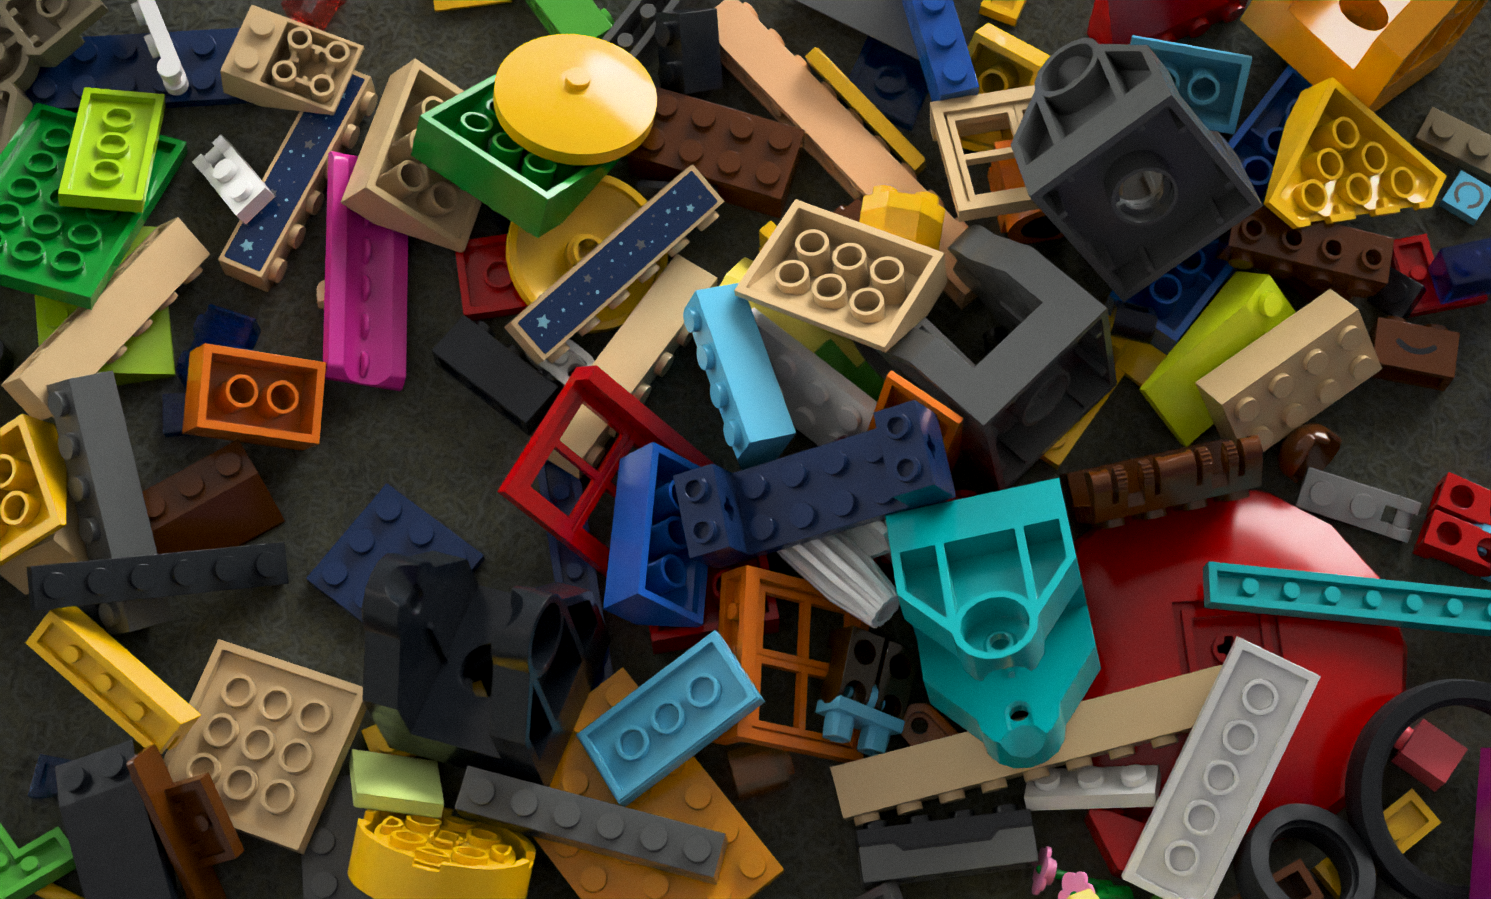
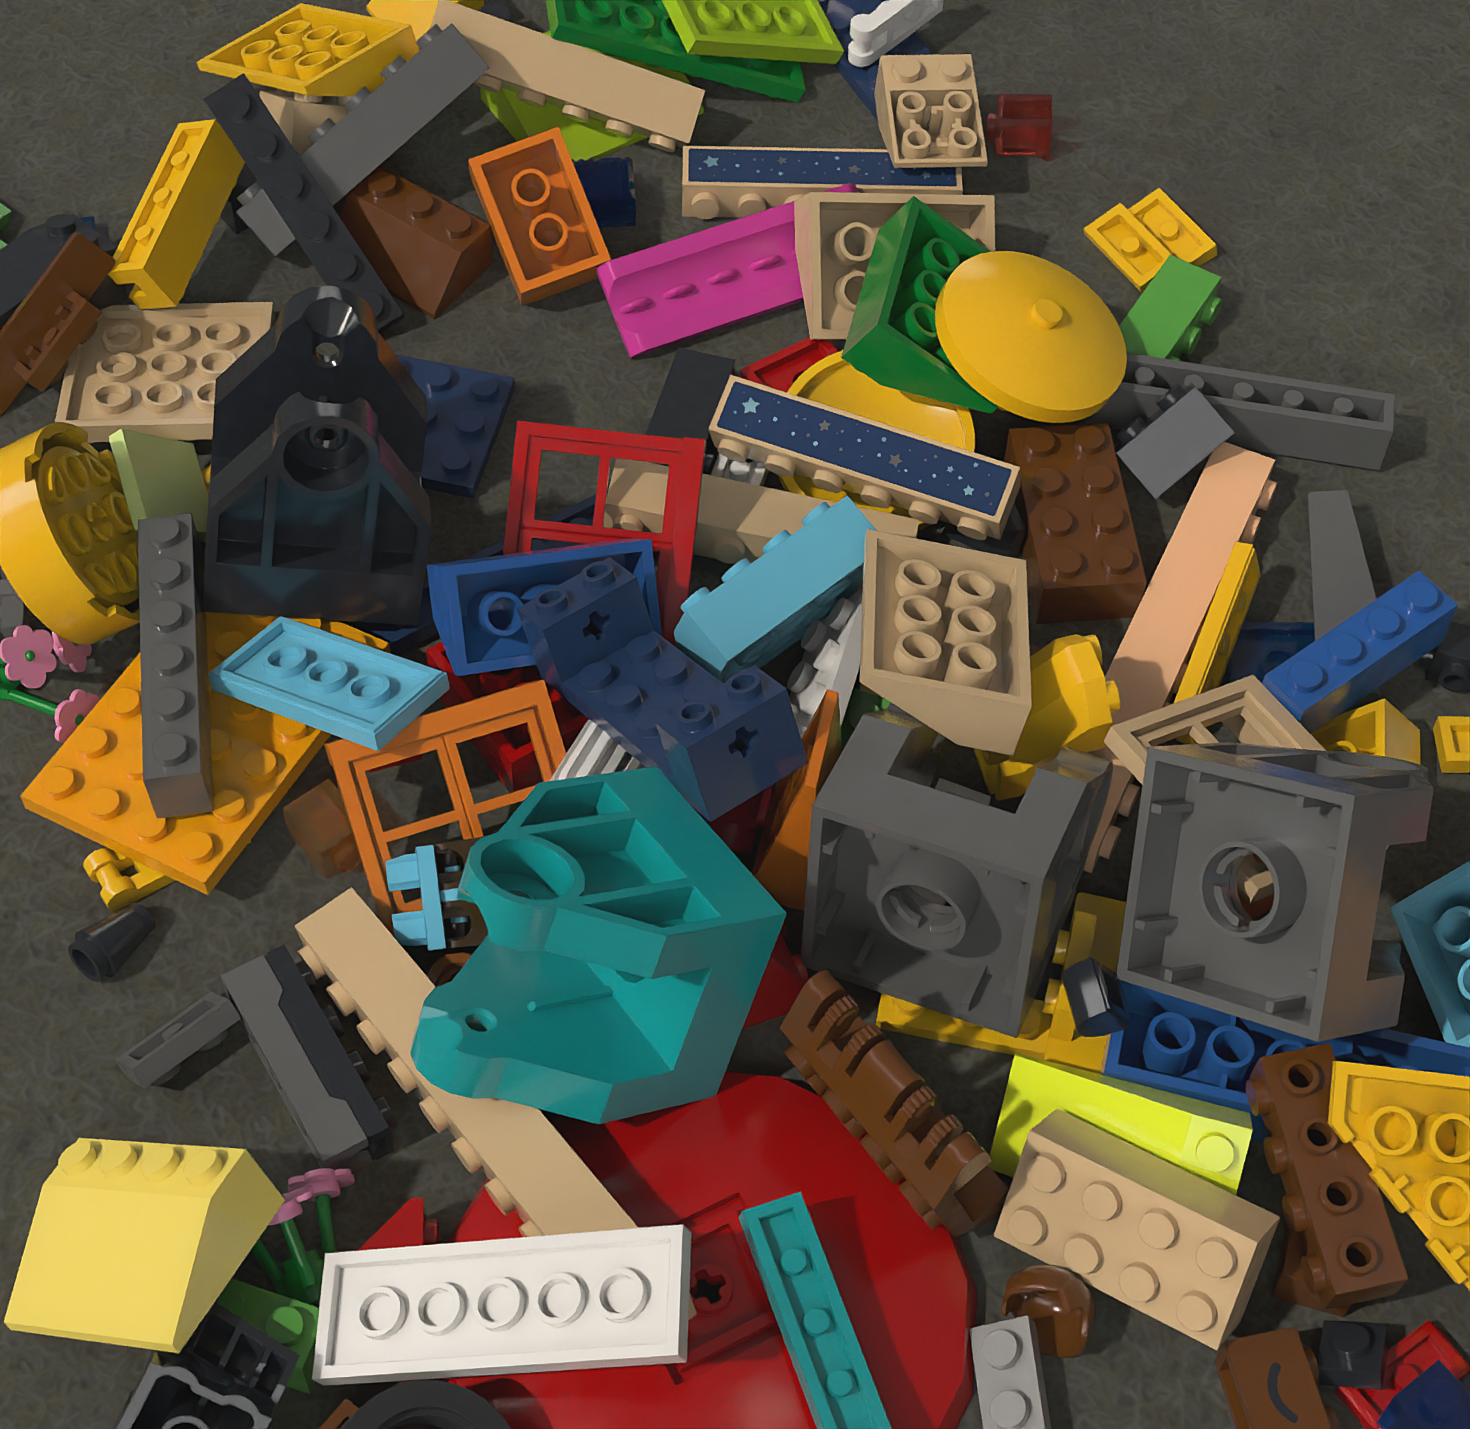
camera: 65 degrees right, 15 degrees down
(234, 179) = (781, 129): white plate -> none
(1095, 788) = (443, 1185): white plate -> none

